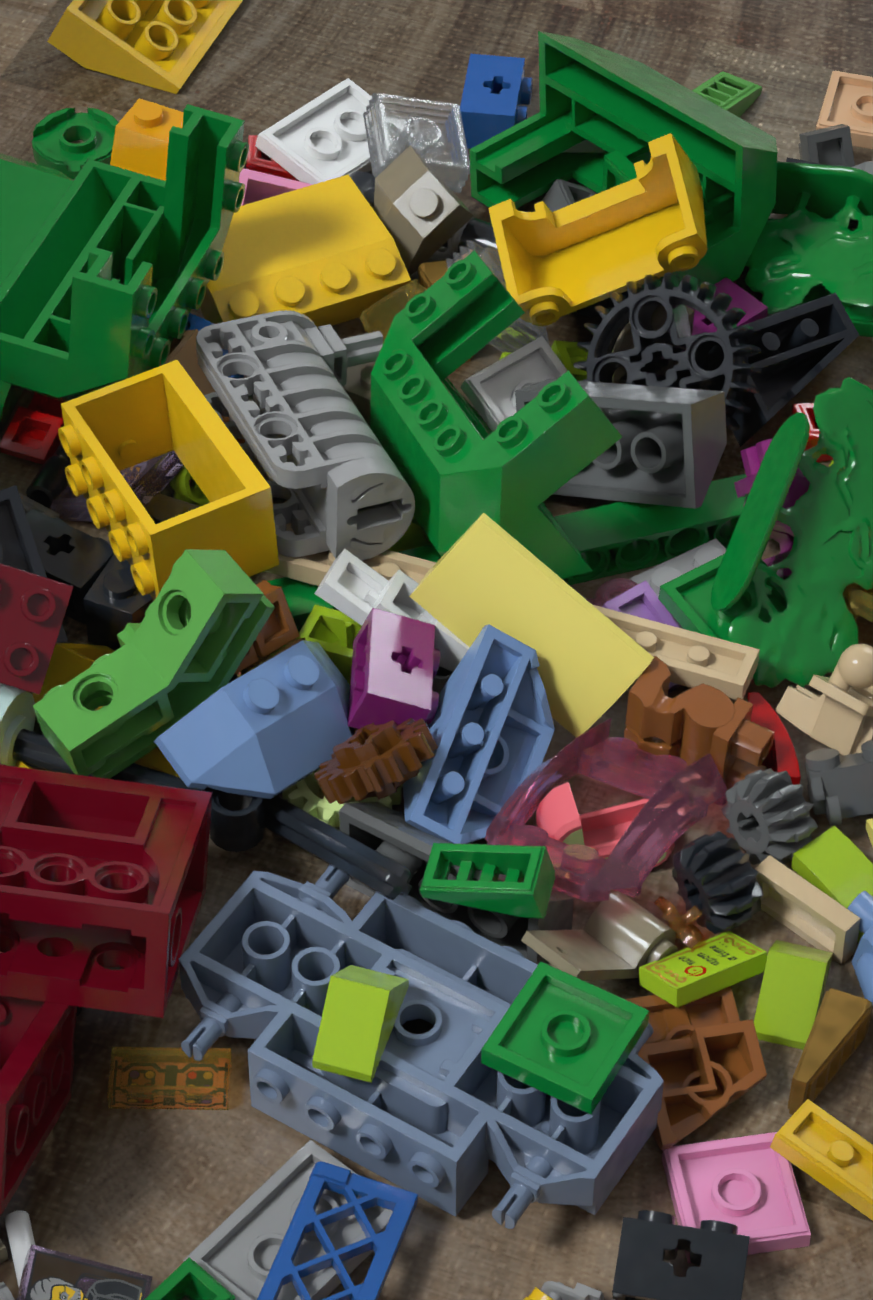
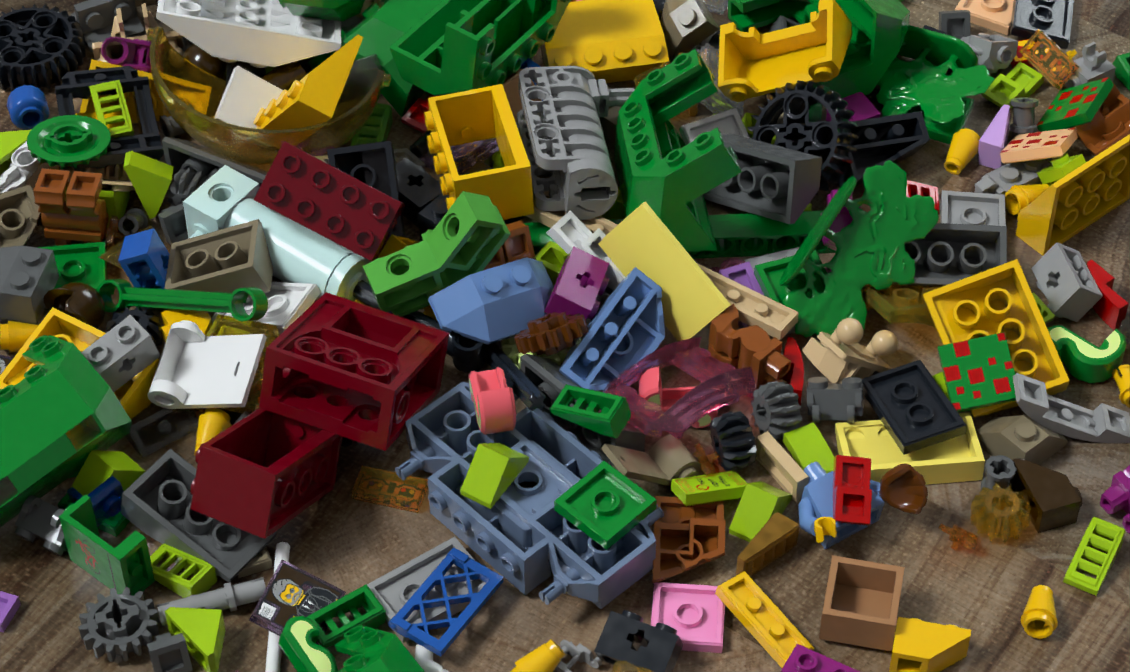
camera: 15 degrees right, 0 degrees up
(326, 903) = (492, 401): none -> coral animal

